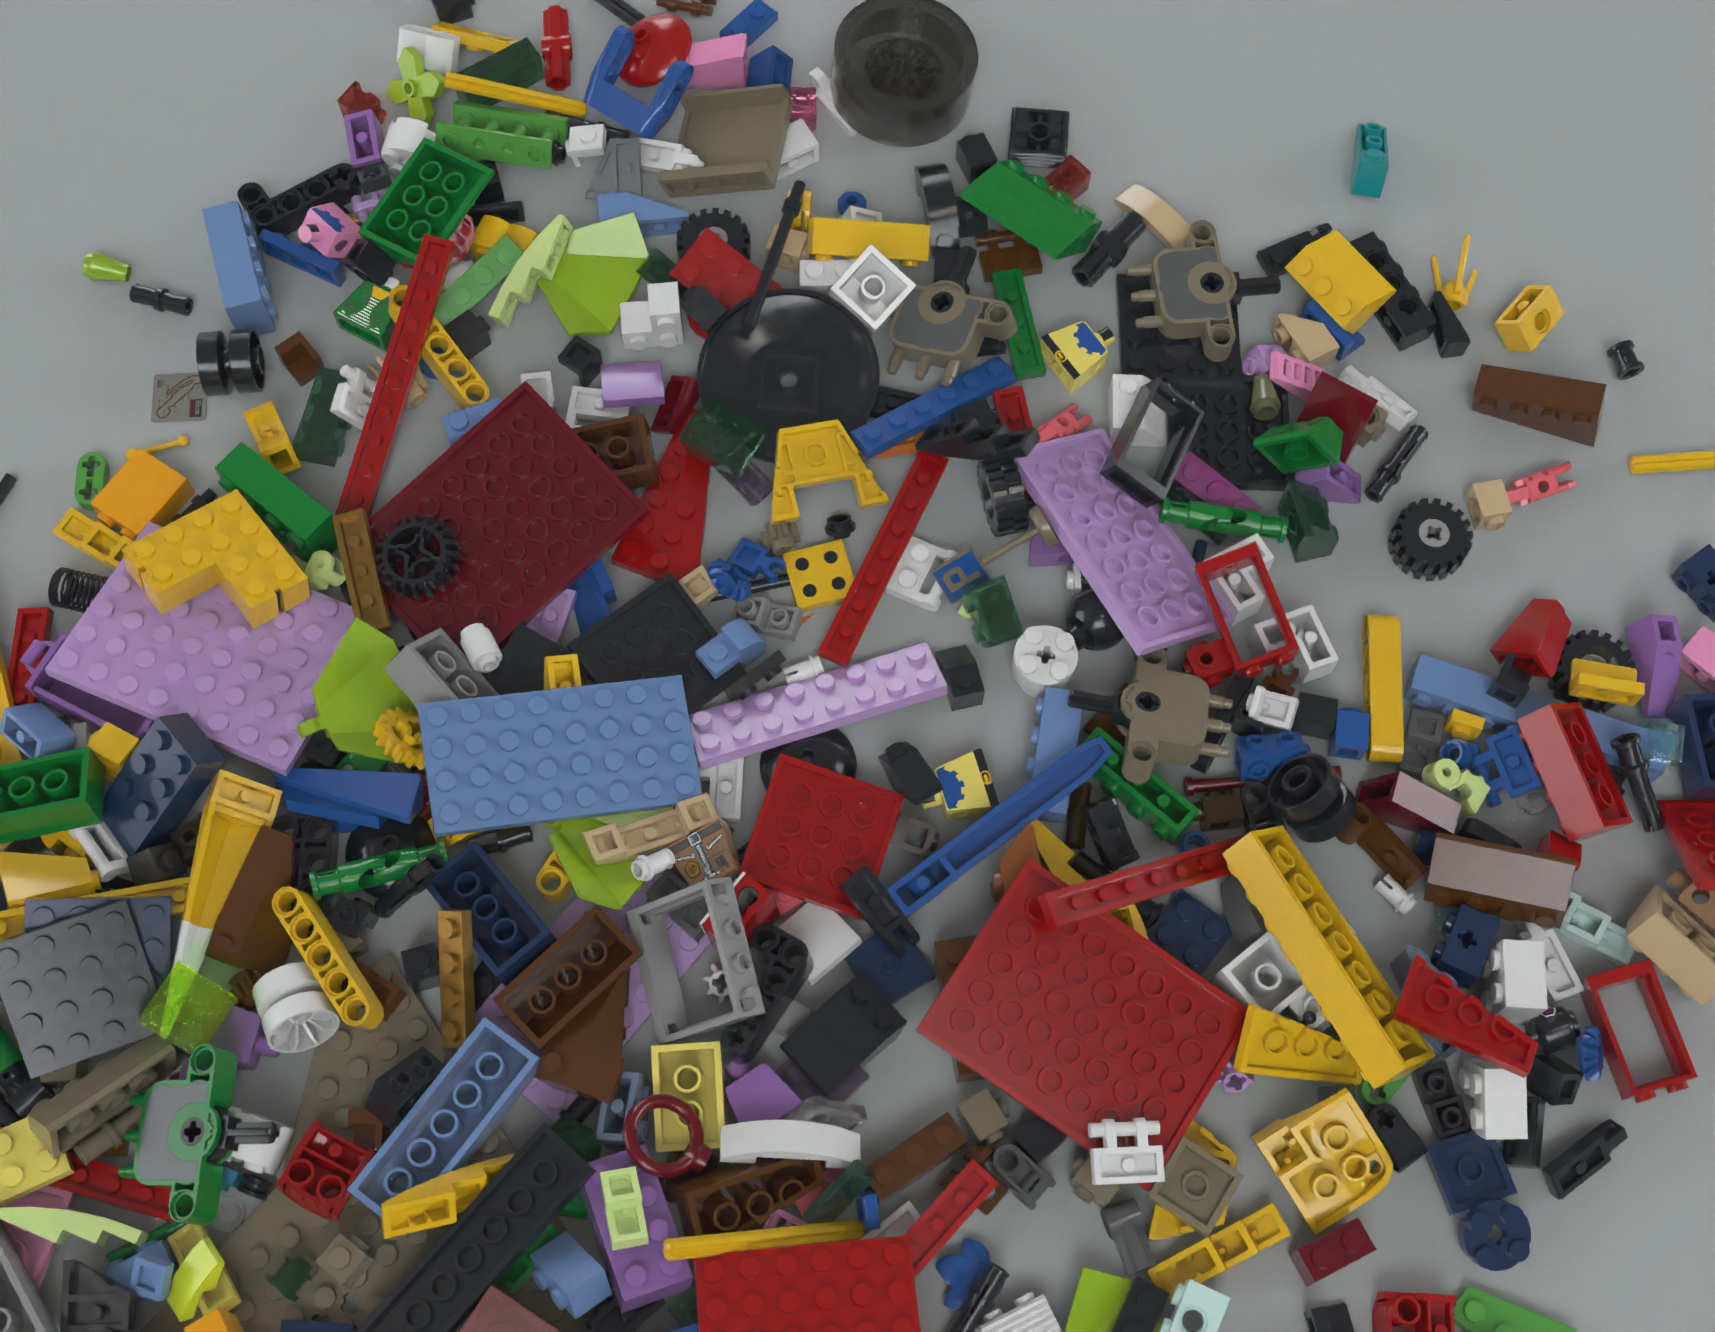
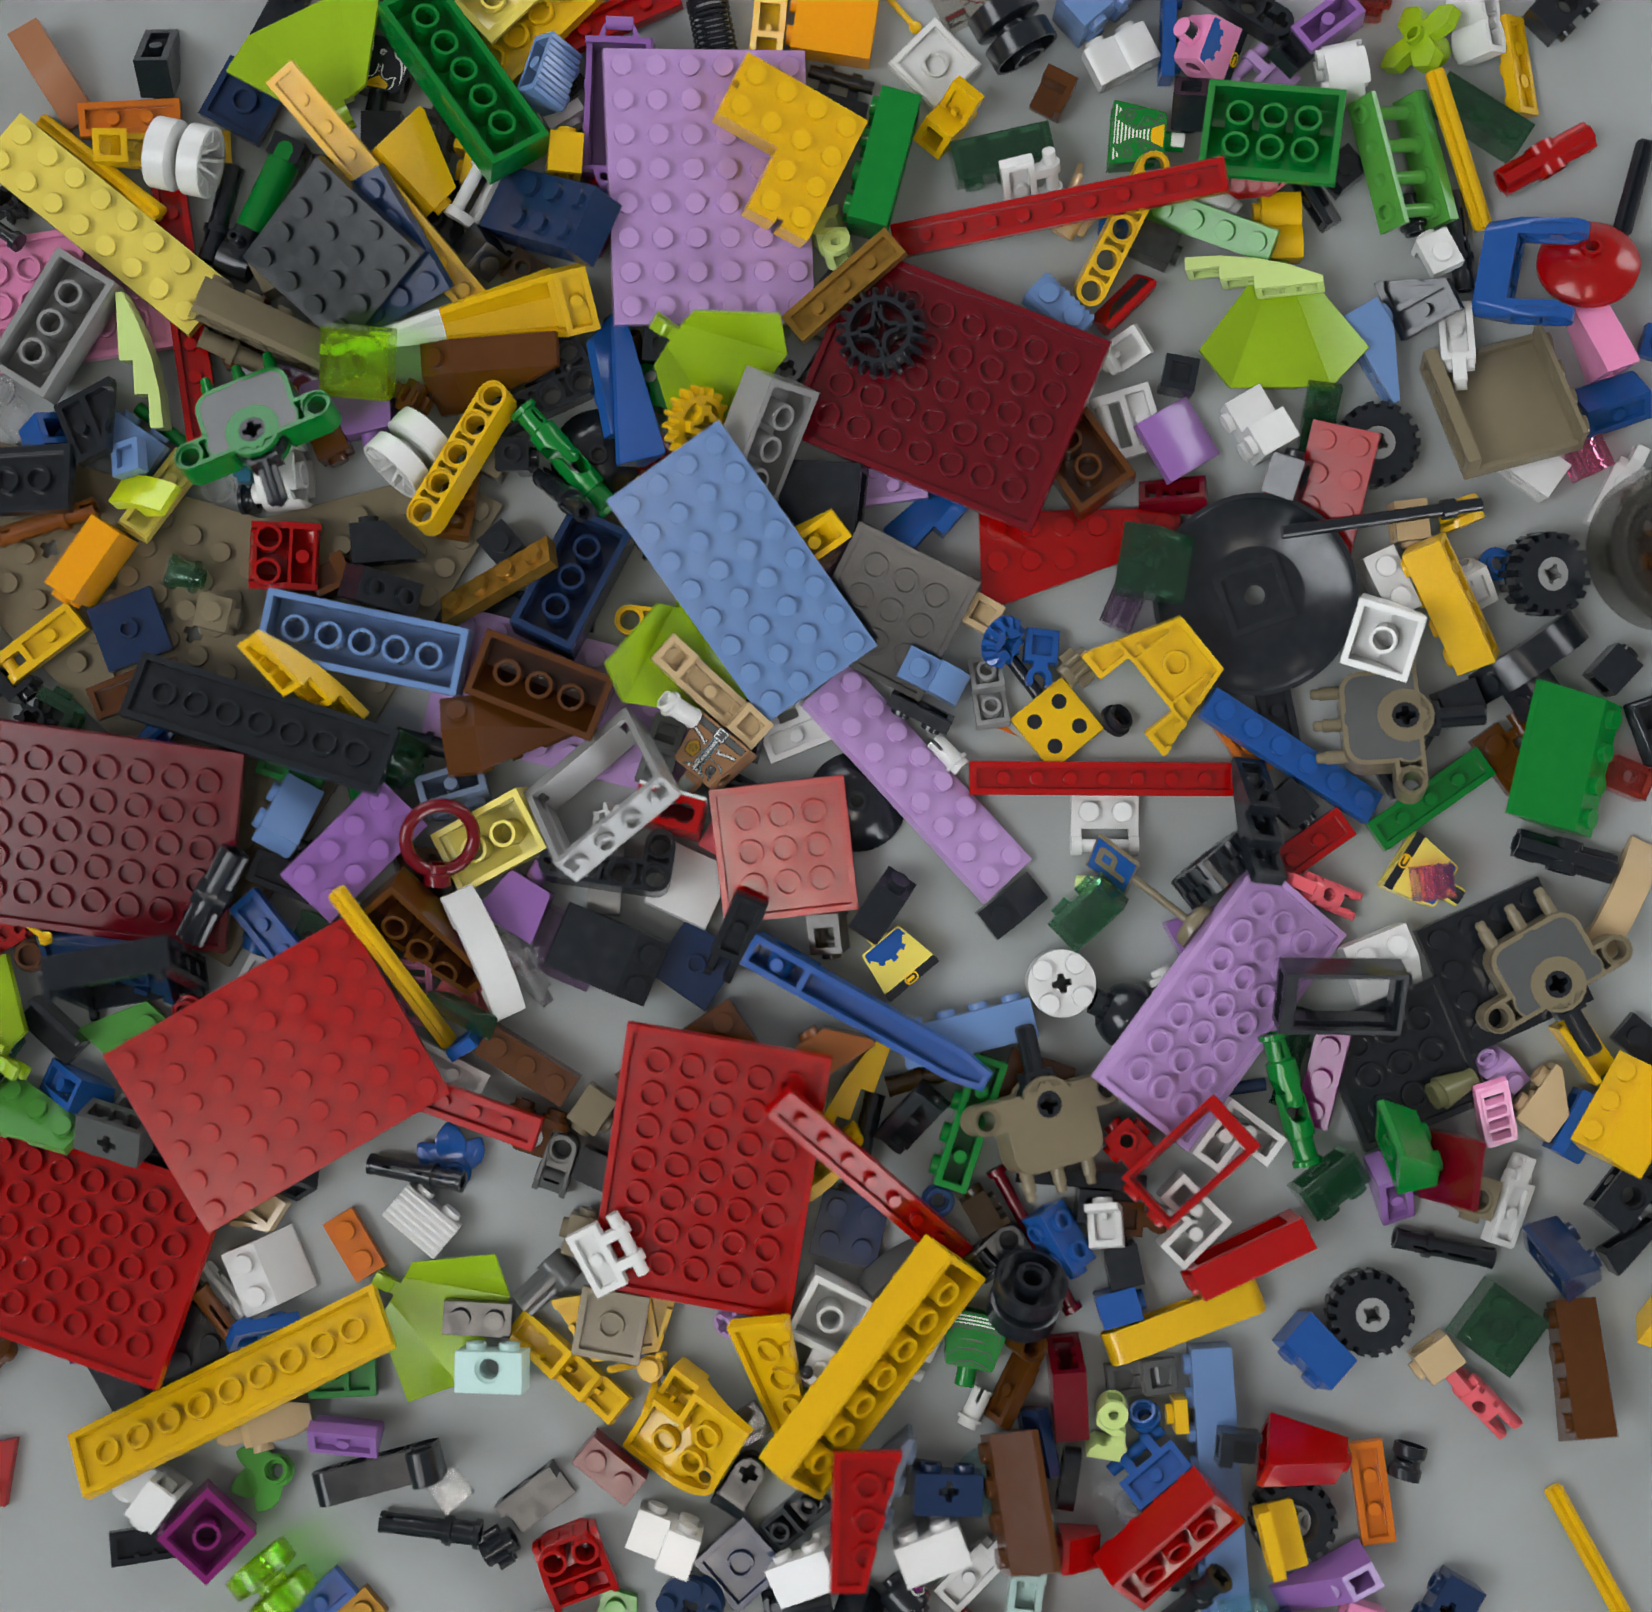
camera: 70 degrees right, 20 degrees up
(217, 435) = (932, 63): none -> white tile
(251, 1084) = (333, 448): none -> reddish brown brick
(300, 298) = (1120, 56): none -> white brick
(361, 1068) = (380, 545): none -> black slope
(480, 648) = (817, 441): white brick -> none
(496, 373) = (1123, 303): none -> red slope
(624, 1208) = (356, 836): yellowish green slope -> none
(877, 171) = (1527, 576): none -> black wheel
(1087, 337) = (1432, 882): none -> clear pink brick
(1254, 1172) = (650, 1369): none -> yellow plant
(1286, 300) = (1589, 1067): none -> yellow panel
(1340, 868) = (972, 1345): none -> green torso
(1345, 605) = (1248, 1255): none -> red window
(1427, 1220) = (666, 1538): none -> white brick
(1439, 374) = (1562, 1256): none -> dark blue slope
(1448, 593) = (1313, 1351): none -> blue brick
(1479, 447) = (1497, 1326): none -> clear green brick
(1577, 565) = (1407, 1461): none -> black wheel
(1590, 601) = (1371, 1491): none -> orange plate

